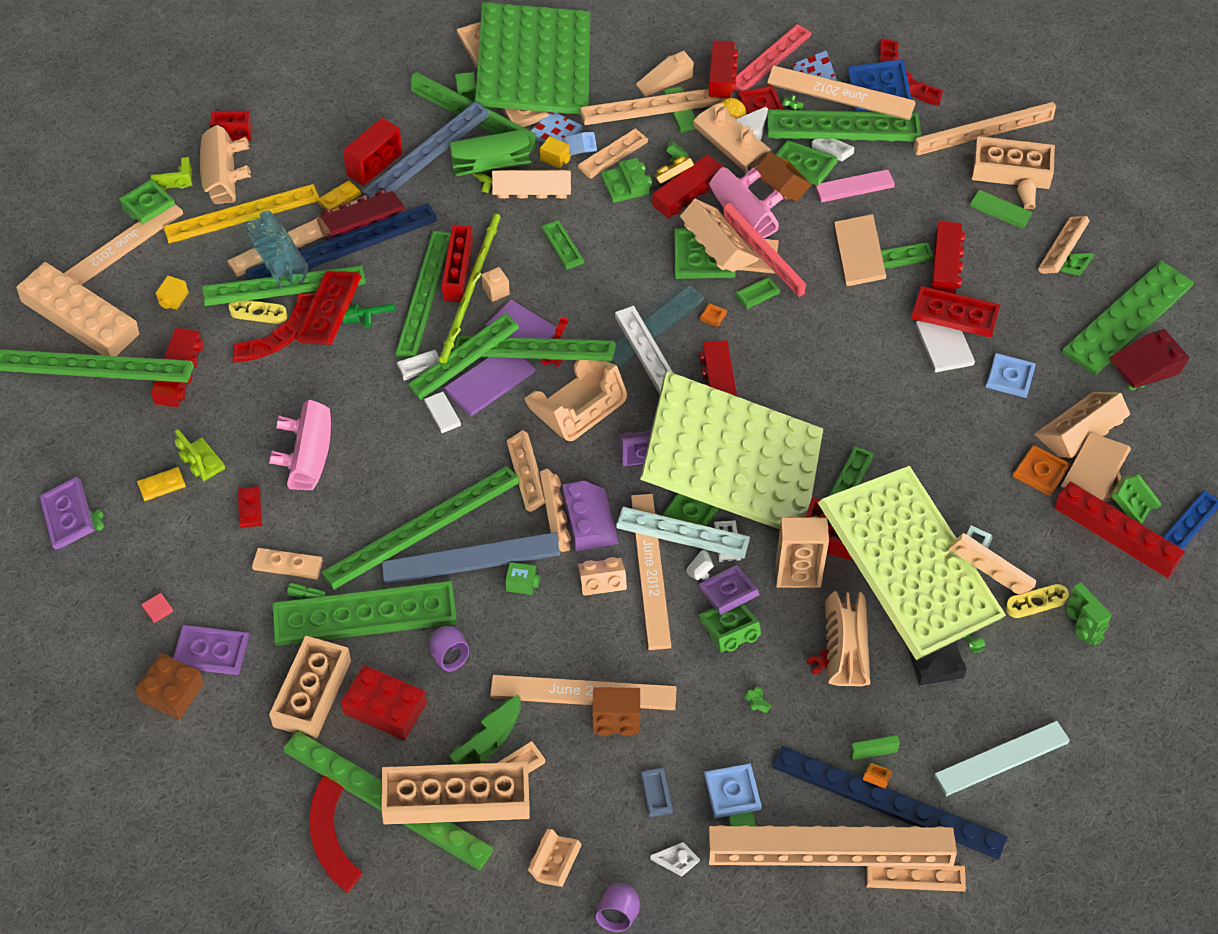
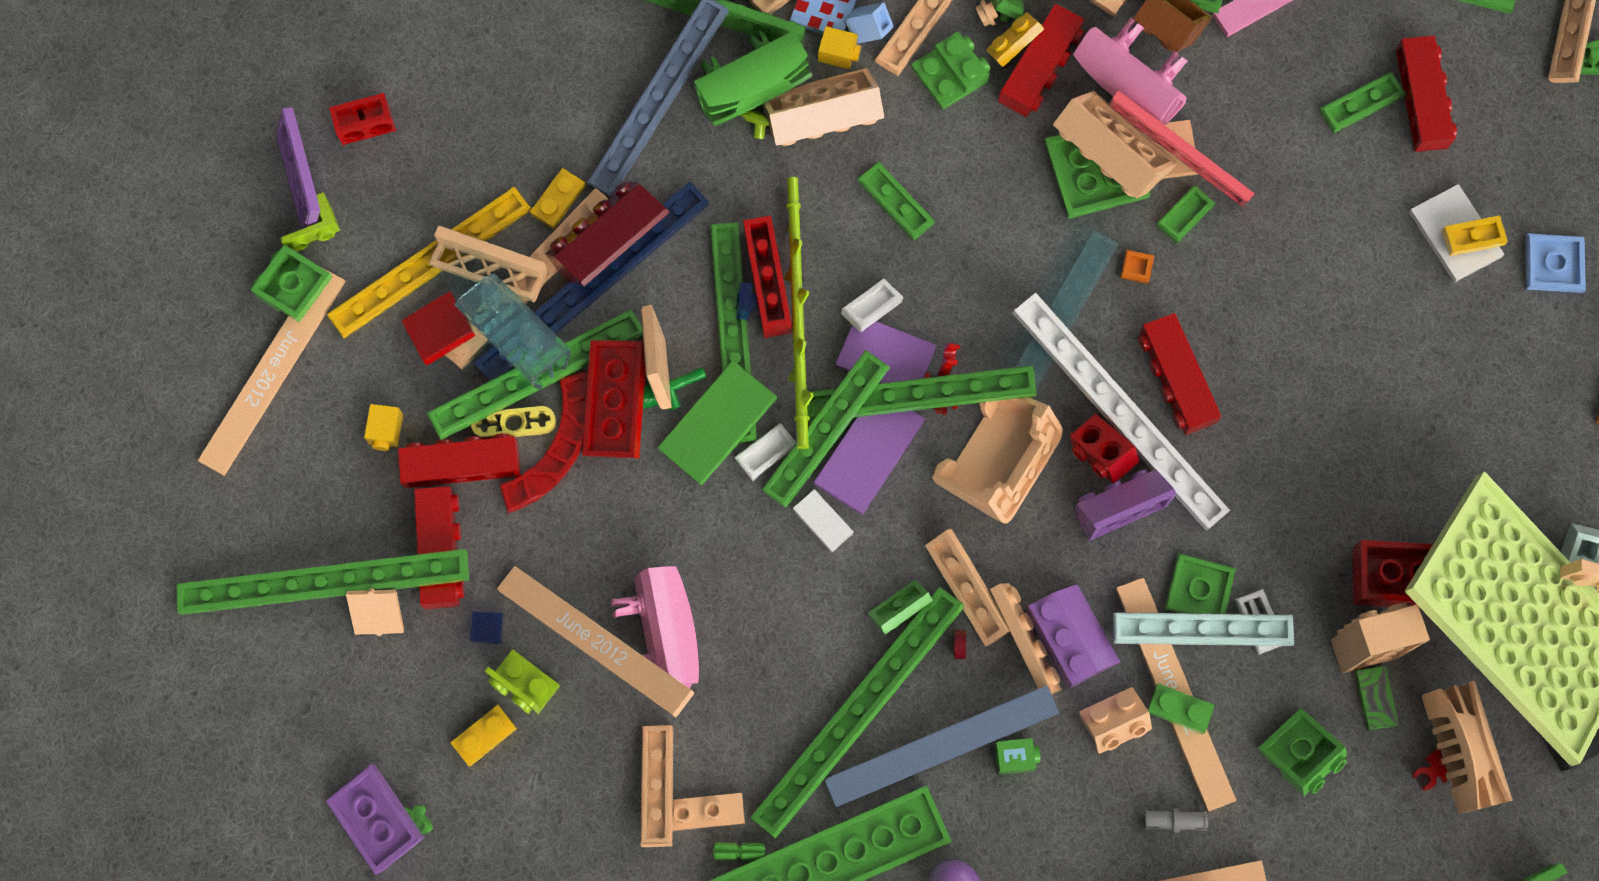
camera: 15 degrees left, 20 degrees up
(77, 310) = (264, 494): light nougat brick -> none
(119, 391) = (375, 611): none -> light nougat piece
(177, 141) = (297, 169): none -> medium lavender tile
(190, 421) = (487, 627): none -> clear blue plate
(214, 322) = (459, 461): none -> red brick
(218, 164) = (369, 194): light nougat piece -> none
(230, 247) = (438, 328): none -> red tile
(249, 507) = (616, 739): red plate -> none
(257, 437) = (596, 641): none -> light nougat tile
(265, 538) = (657, 786): none -> light nougat tile
(287, 215) = (489, 253): none -> light nougat fence
(364, 286) = (656, 357): none -> light nougat tile
(372, 151) = (584, 116): red brick -> none
(392, 338) = (717, 422): none -> bright green tile
(436, 272) = (745, 301): none -> clear blue plate
(481, 470) = (900, 606): none -> bright green plate
(495, 284) = (829, 296): light nougat brick -> none
(508, 503) = (960, 644): none -> dark red tile
(523, 296) = (872, 305): none -> white tile
(622, 646) = (1176, 820): none -> light grey pin
(644, 405) = (1106, 445): none -> red brick
(649, 576) = (1180, 708): none -> bright green plate
(661, 154) = (987, 13): none -> light nougat plate
(700, 566) = (1239, 672): white piece -> none
(728, 589) = (1287, 701): medium lavender plate -> none
(731, 452) = (1238, 500): yellowish green plate -> none
(756, 701) = (1366, 852): bright green piece -> none
(796, 606) = (1376, 698): none -> tile
(853, 470) = (1390, 487): bright green tile -> none
(860, 250) = (1305, 109): light nougat tile -> none
(954, 342) = (1474, 235): none -> yellow plate
(956, 311) = (1462, 183): red plate -> none

